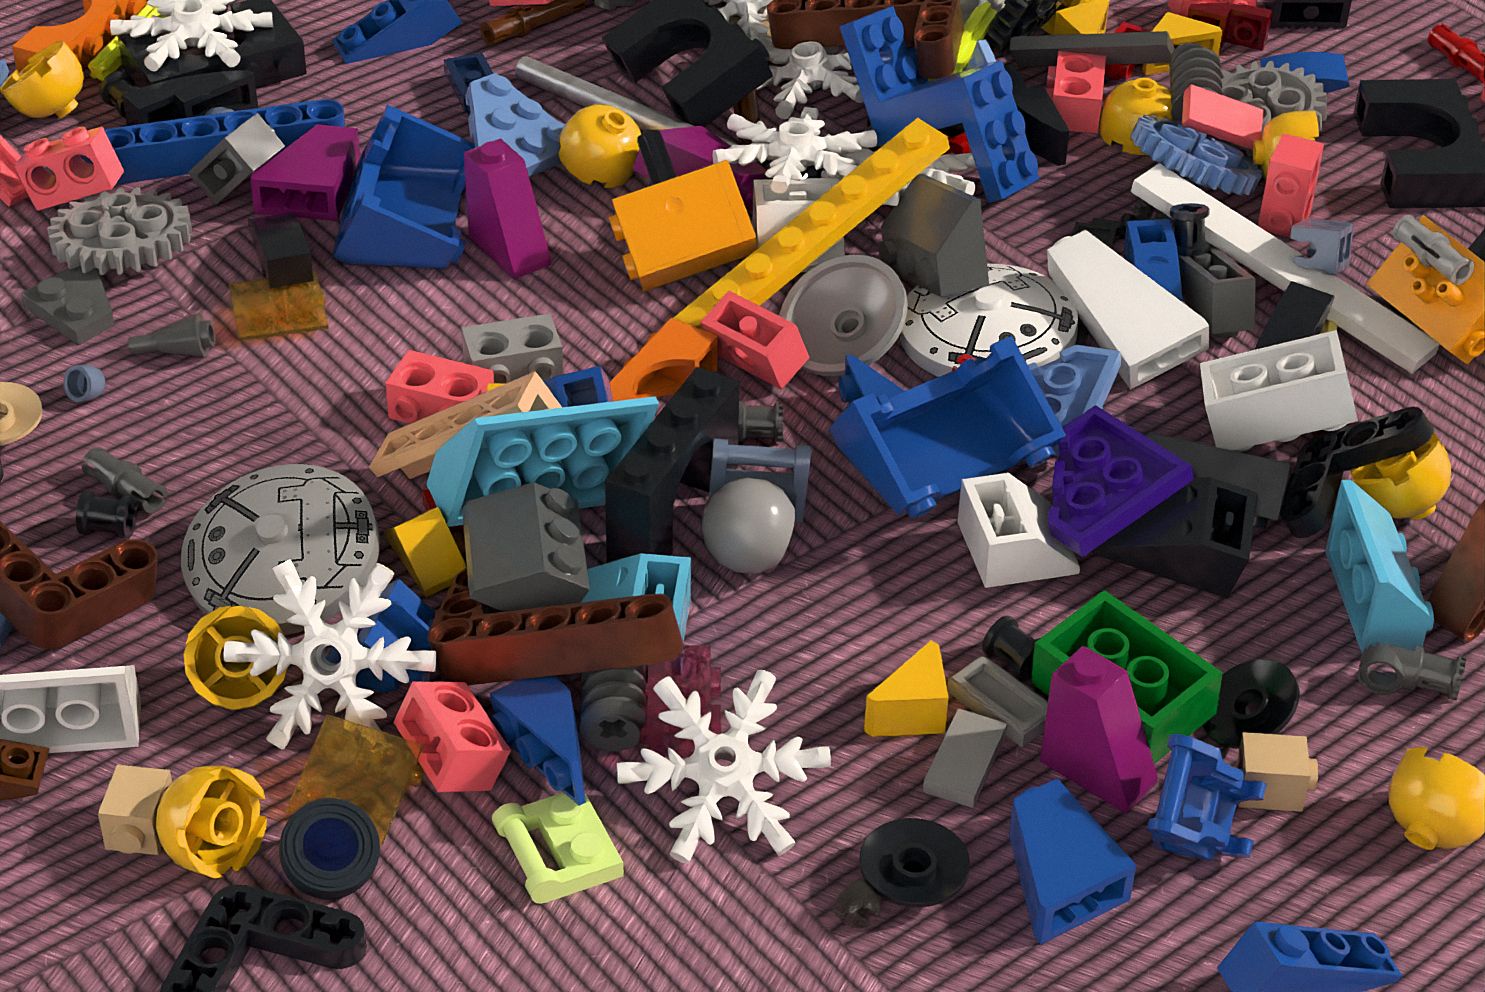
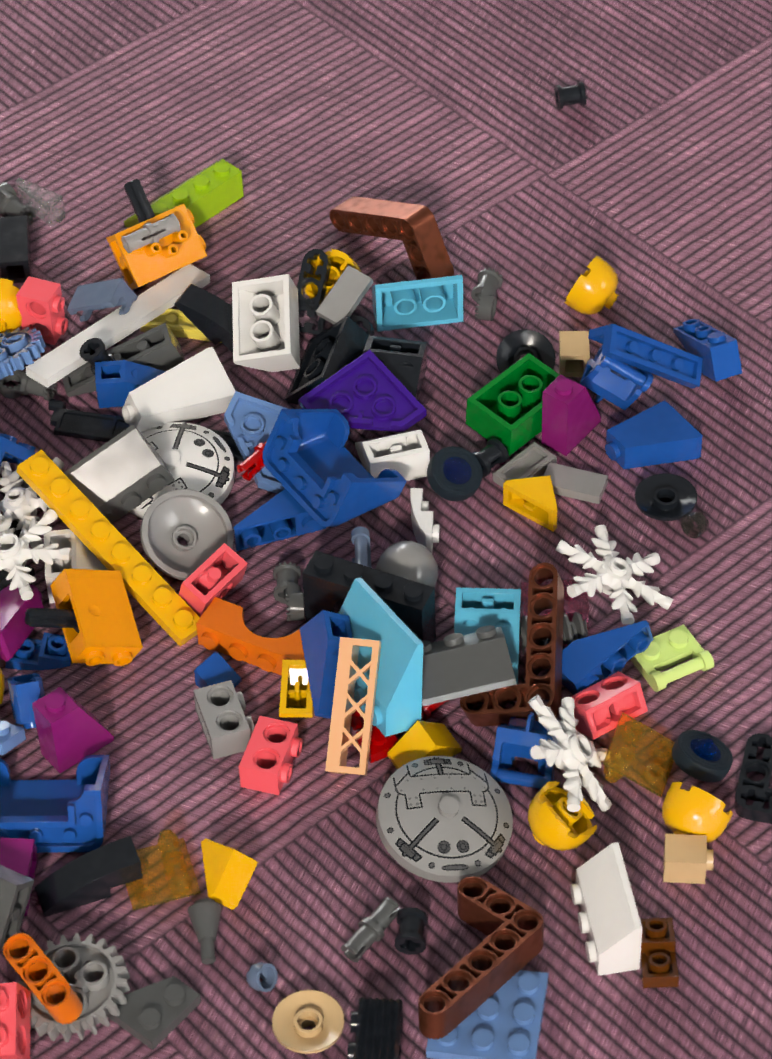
camera: 90 degrees left, 5 degrees up
(108, 181) = (34, 965): none -> orange beam
(255, 348) = (226, 872): none -> yellow slope
(562, 177) = (23, 692): none -> blue brick
(596, 349) = (215, 671): none -> blue slope
(885, 557) = (423, 520): none -> white slope
(970, 598) = (454, 473): none -> black wheel
(1219, 824) = (649, 354): none -> blue fence
(1326, 465) = (344, 295): none -> light grey tile

